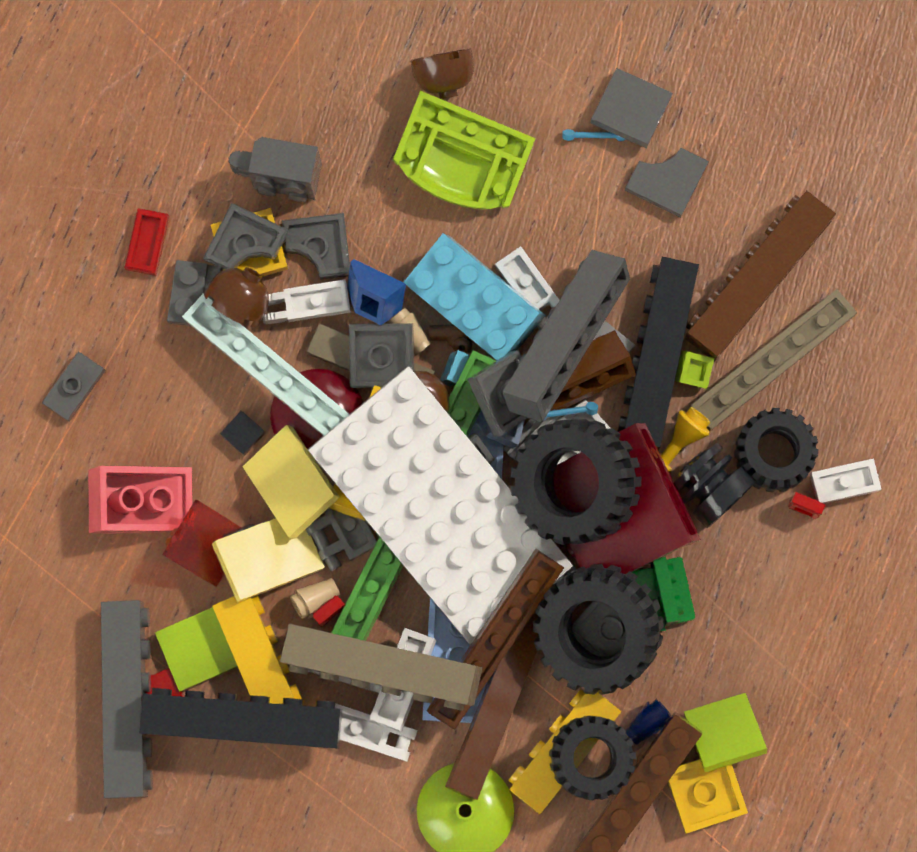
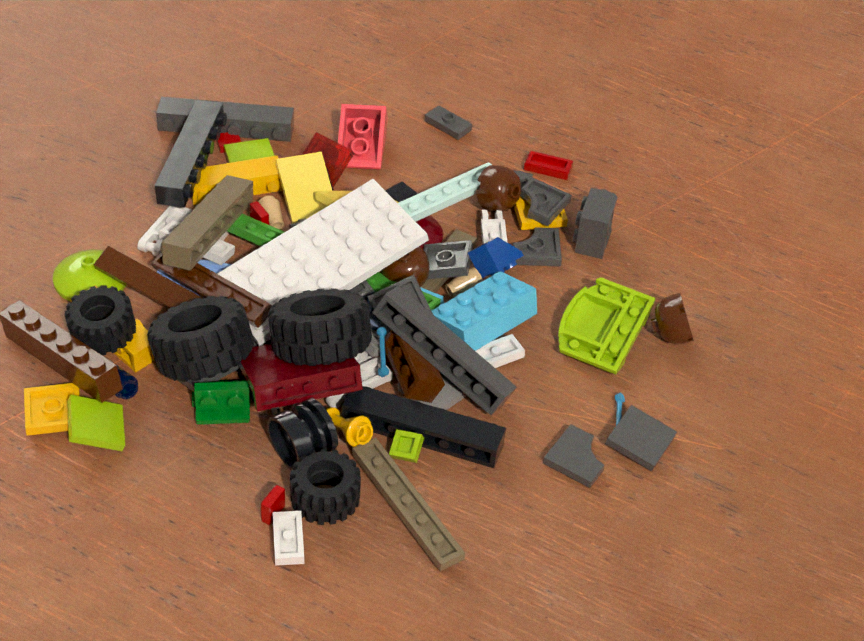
camera: 90 degrees right, 35 degrees down
(760, 275) = (485, 502): reddish brown brick -> none

